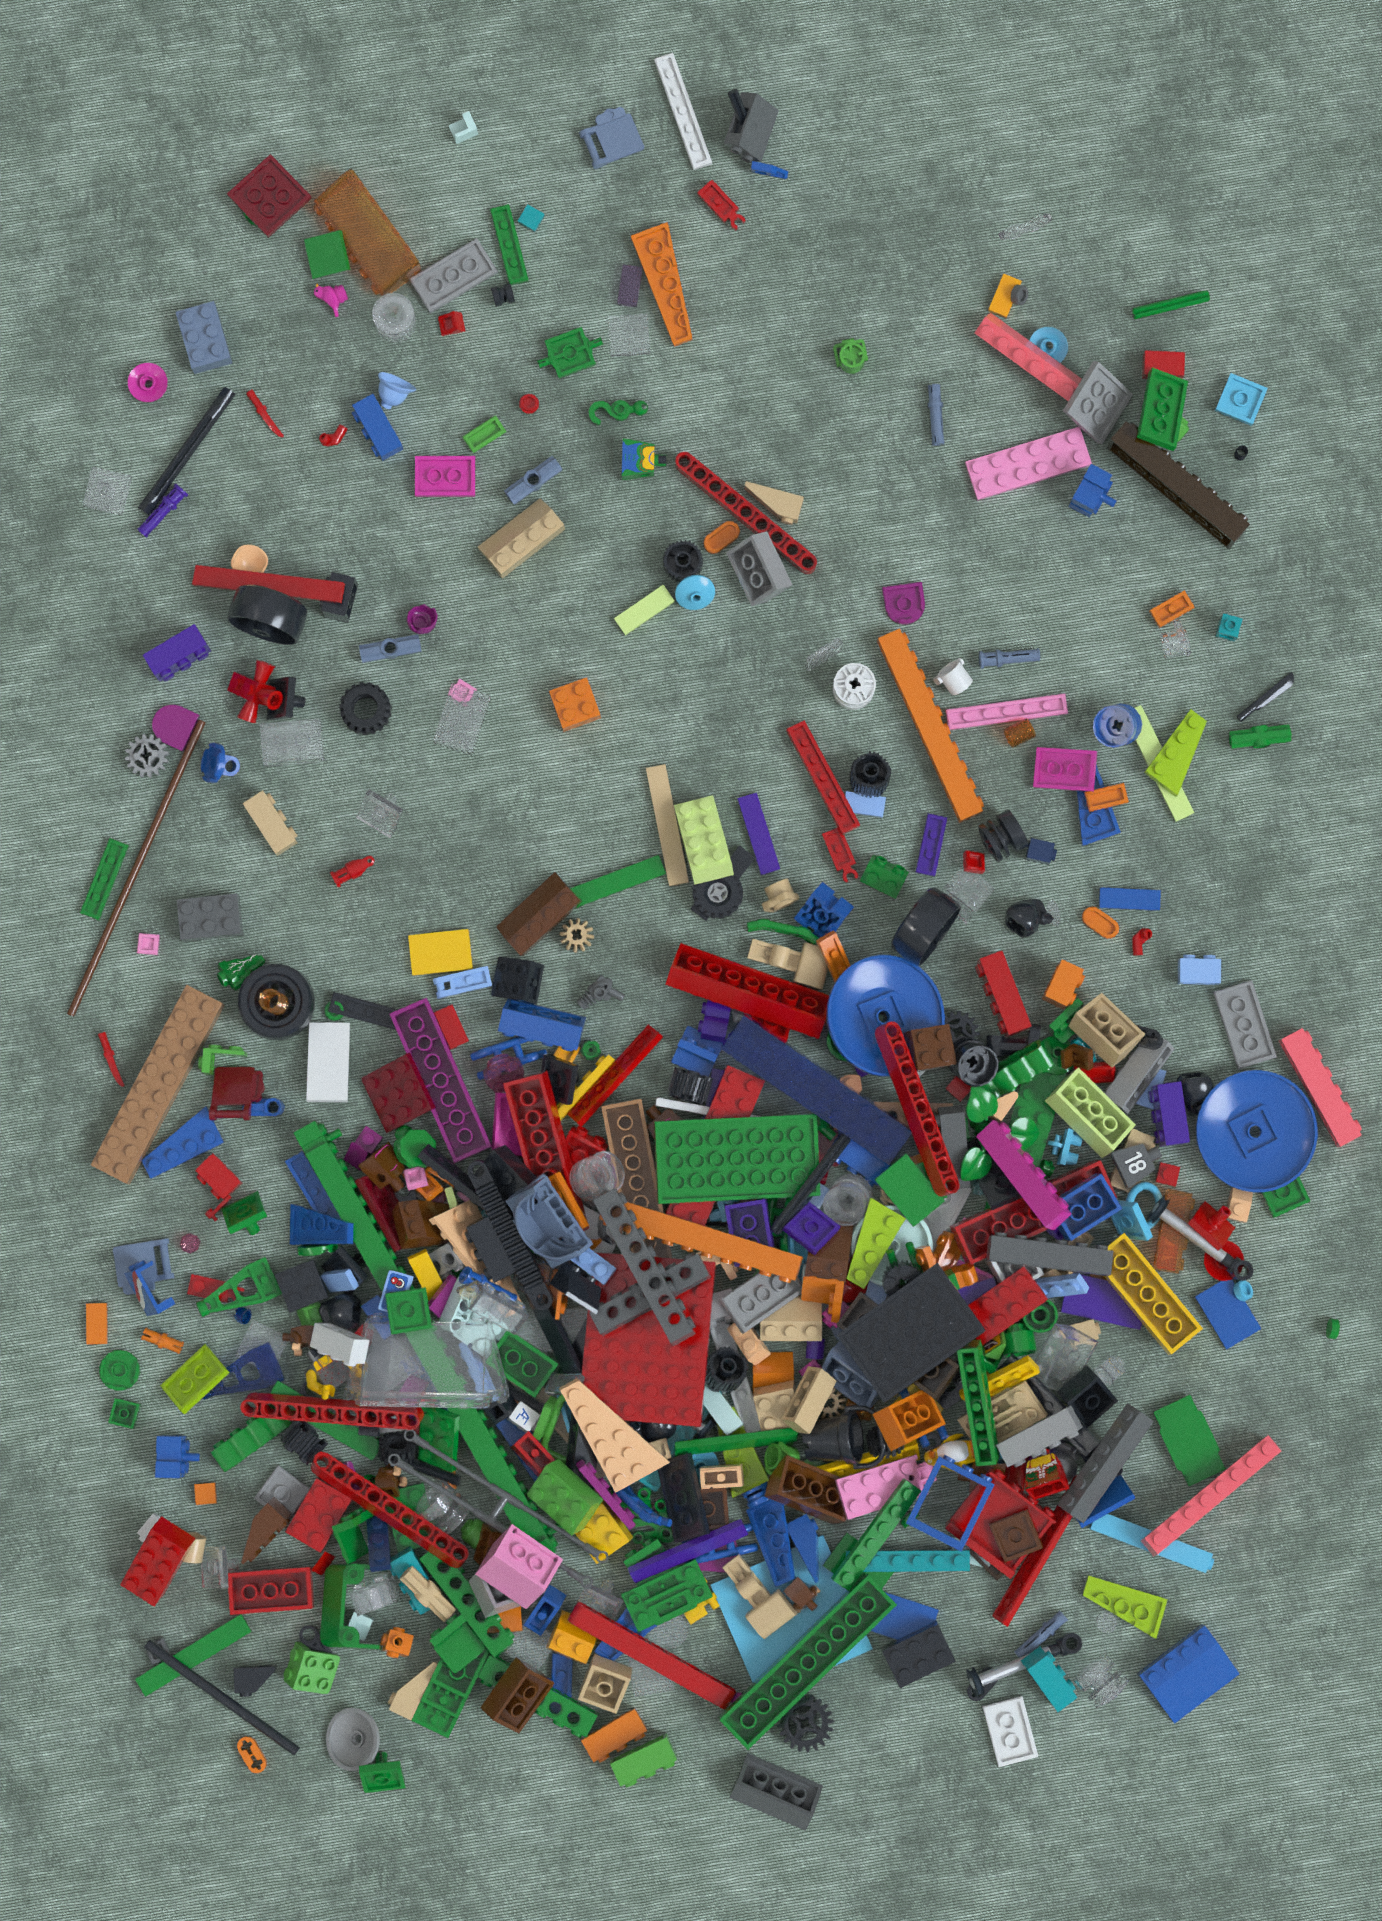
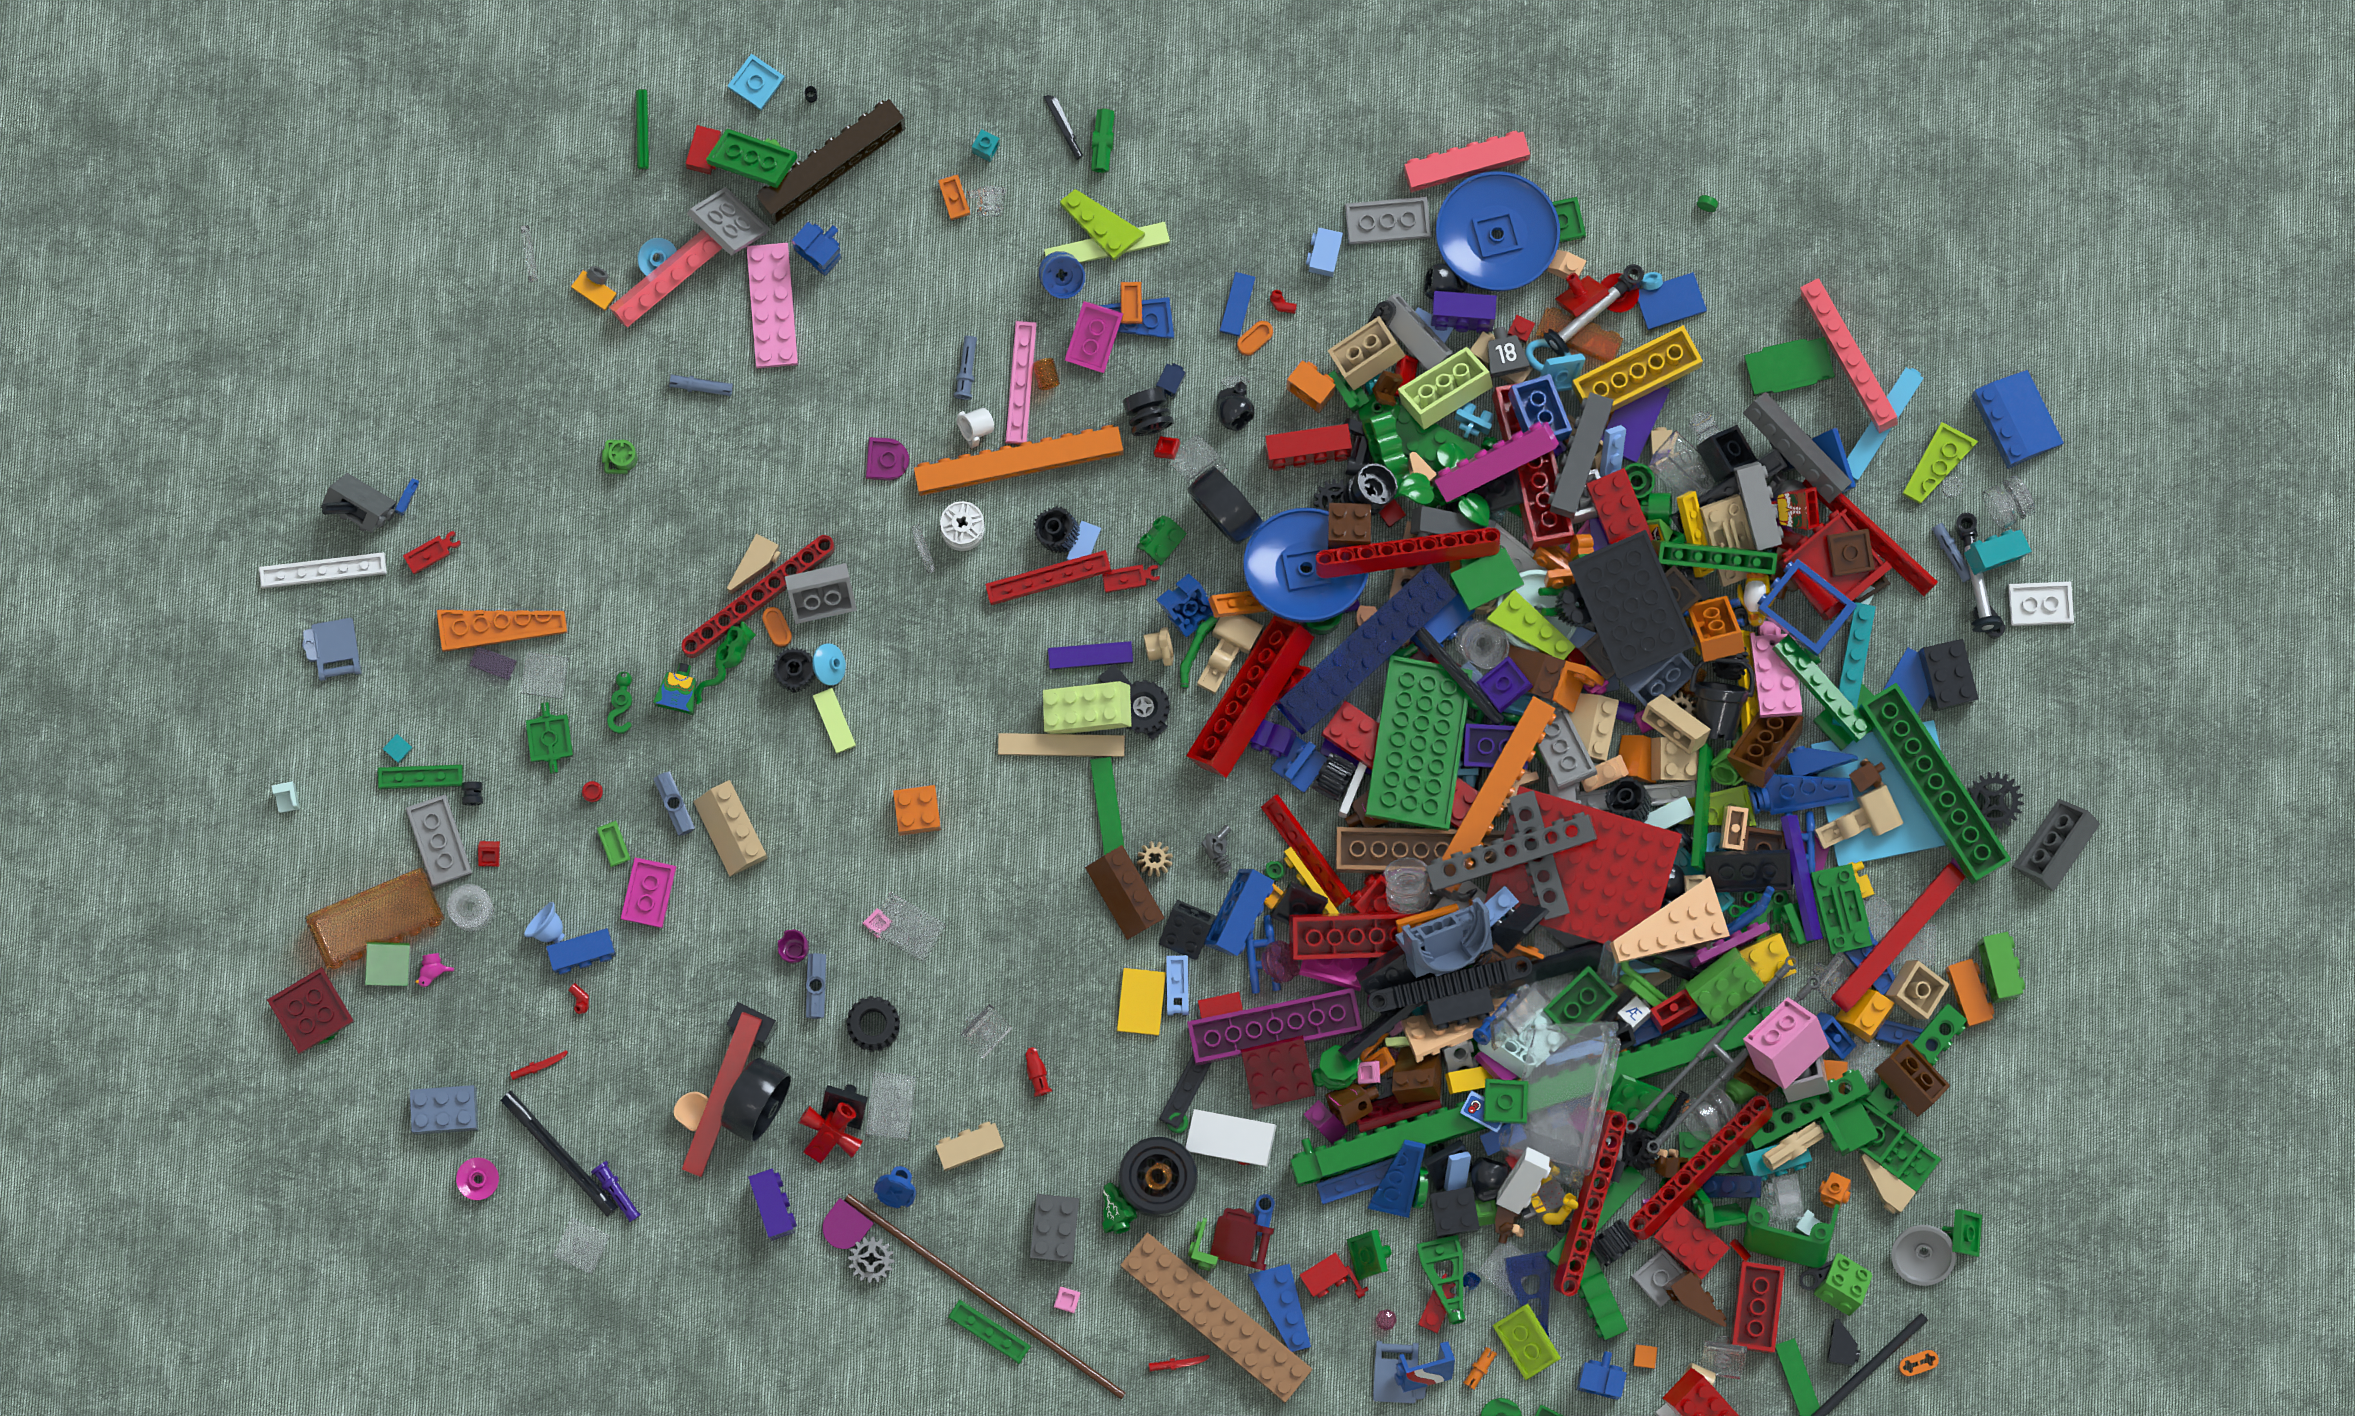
camera: 80 degrees left, 5 degrees down
(683, 498) = (728, 655): none -> green animal
(931, 845) = (1139, 487): dark purple tile -> none

